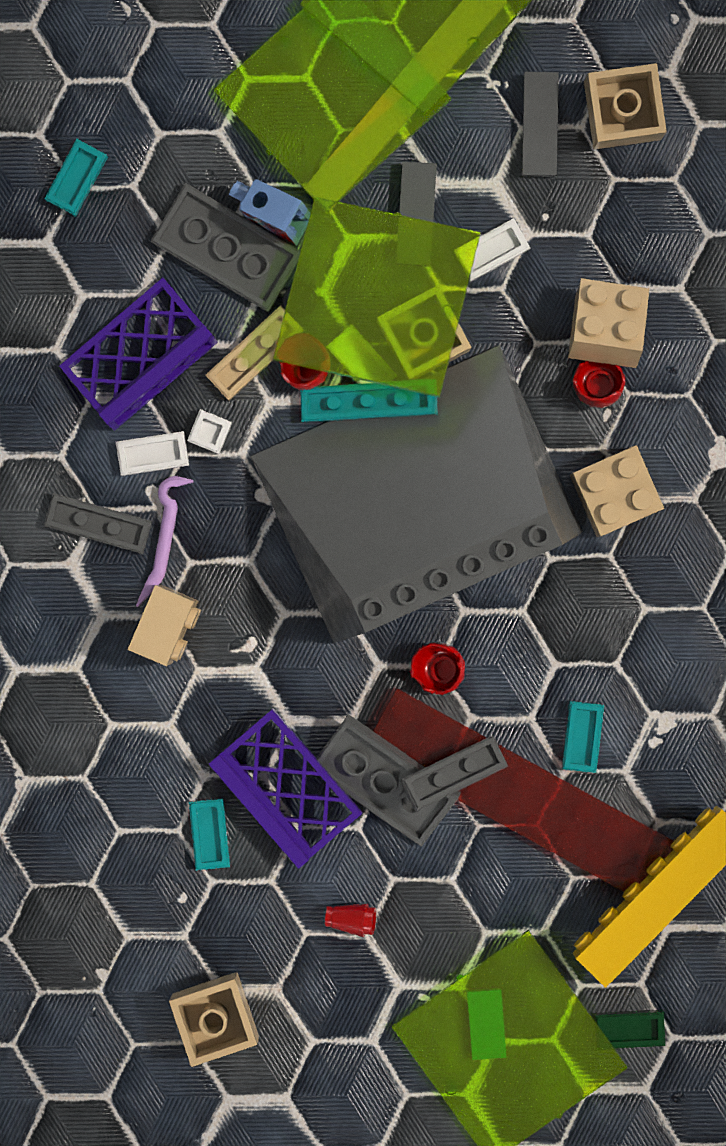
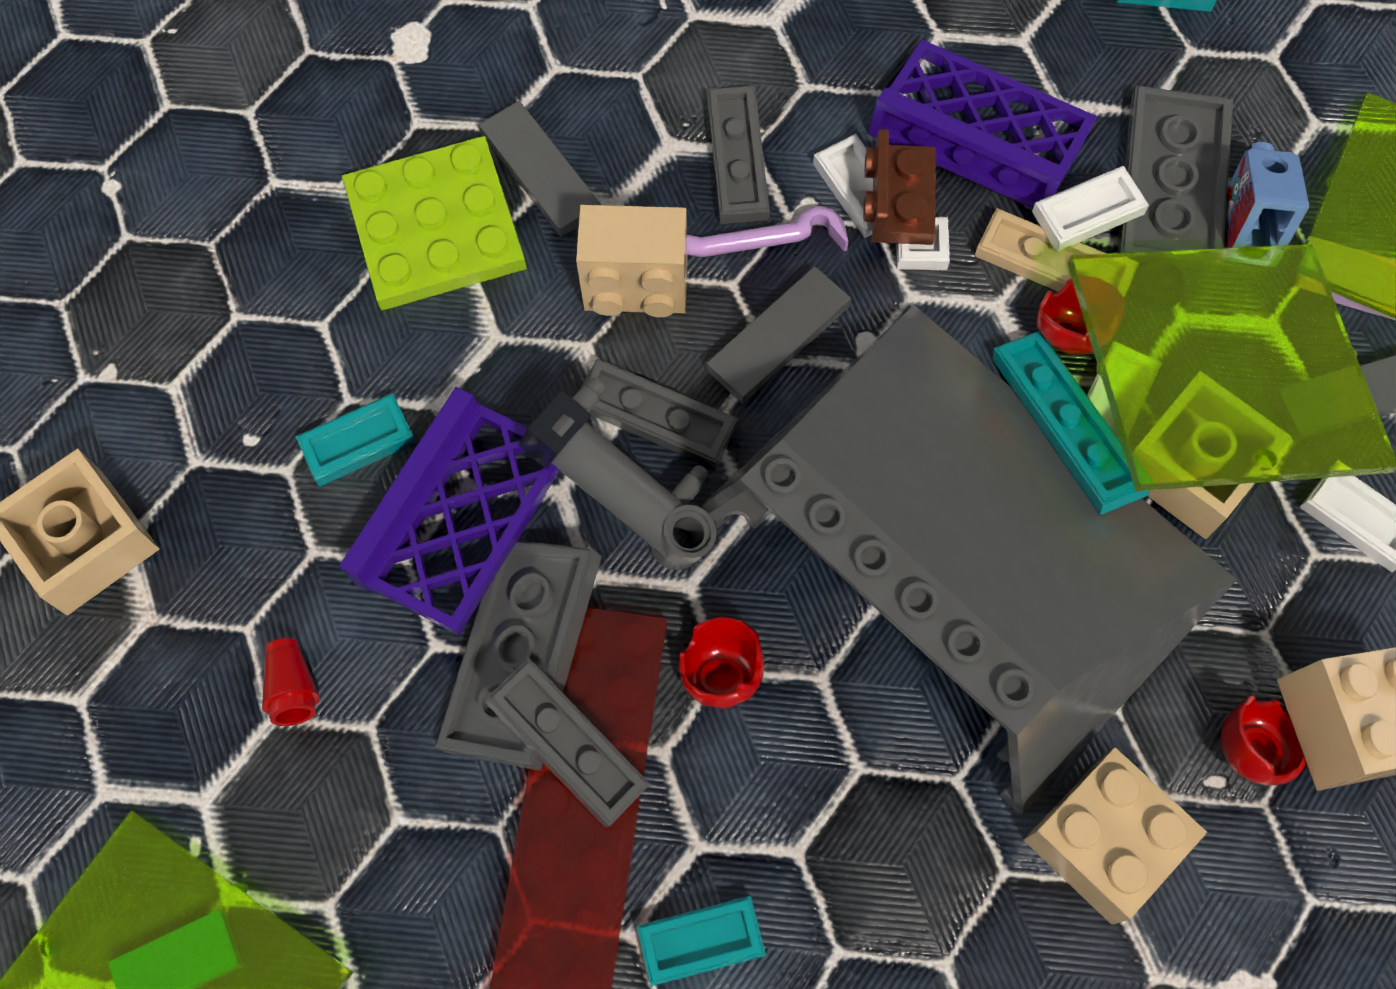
camera: 70 degrees right, 20 degrees down
(60, 656) = (538, 166): none -> dark grey tile
(73, 738) = (433, 223): none -> lime plate
(176, 433) = (902, 192): none -> copper bracket
(231, 318) = (1090, 208): none -> white tile
(238, 549) = (778, 334): none -> dark grey tile
(262, 645) = (661, 415): none -> dark grey tile
(308, 689) = (618, 483): none -> dark grey piece

